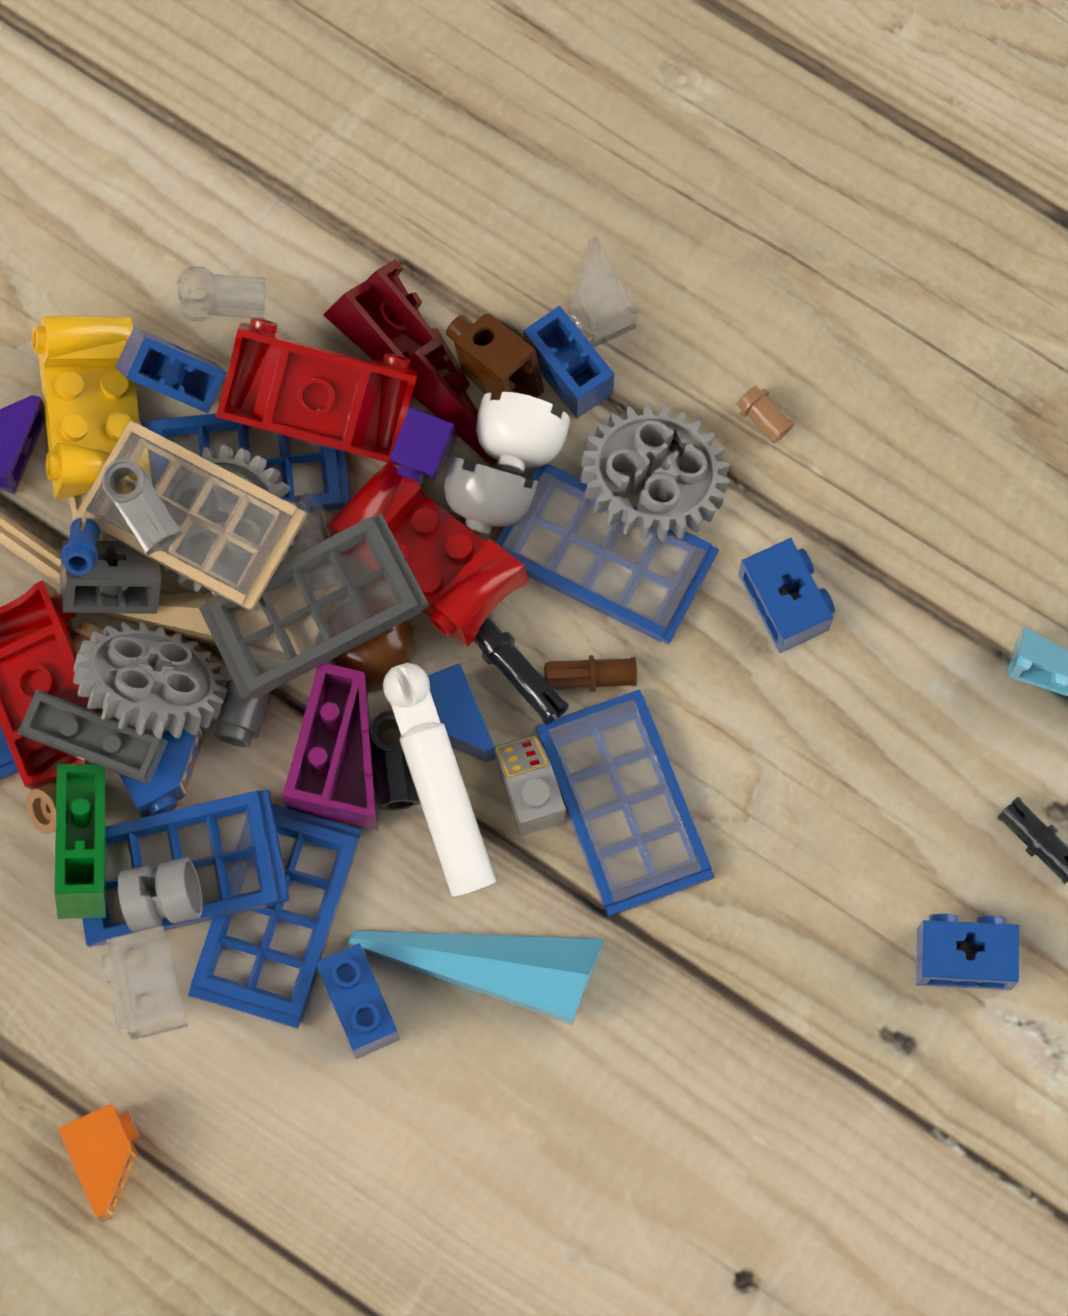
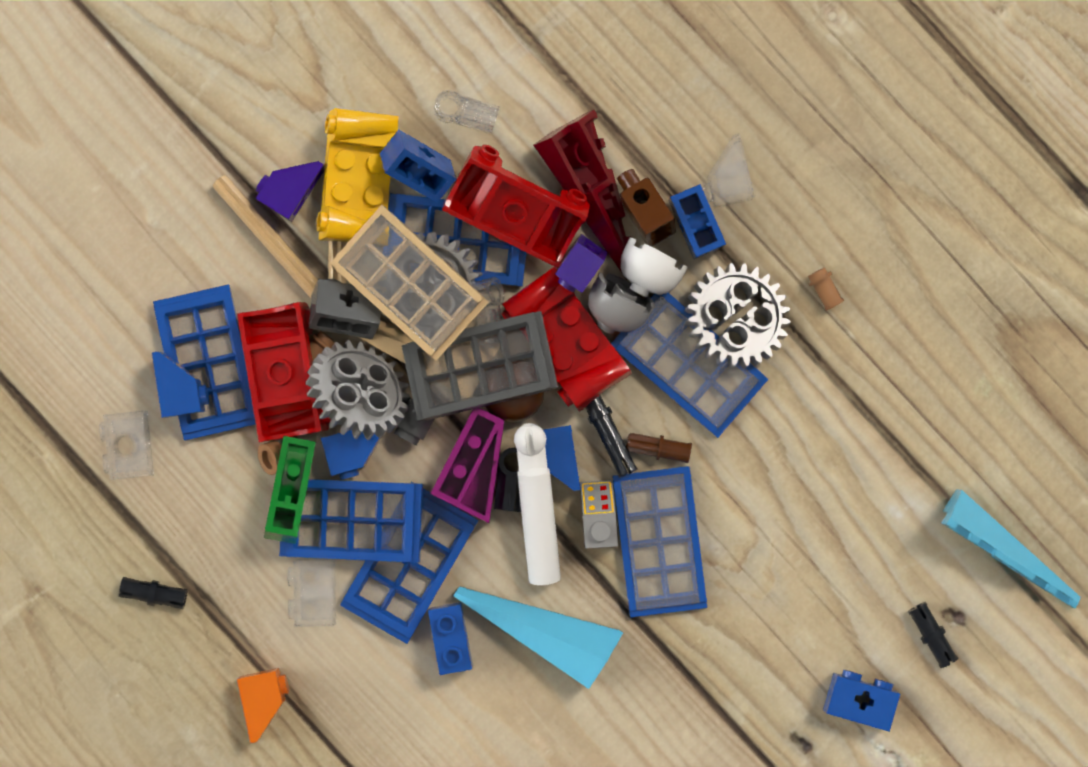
camera: 10 degrees right, 15 degrees up
(80, 552) = (328, 297): blue pin -> none
(92, 739) = (300, 417): dark grey tile -> none
(142, 507) = (377, 278): light grey piece -> none
(165, 893) = (337, 542): light grey wheel -> none
(787, 619) = (793, 412): blue brick -> none

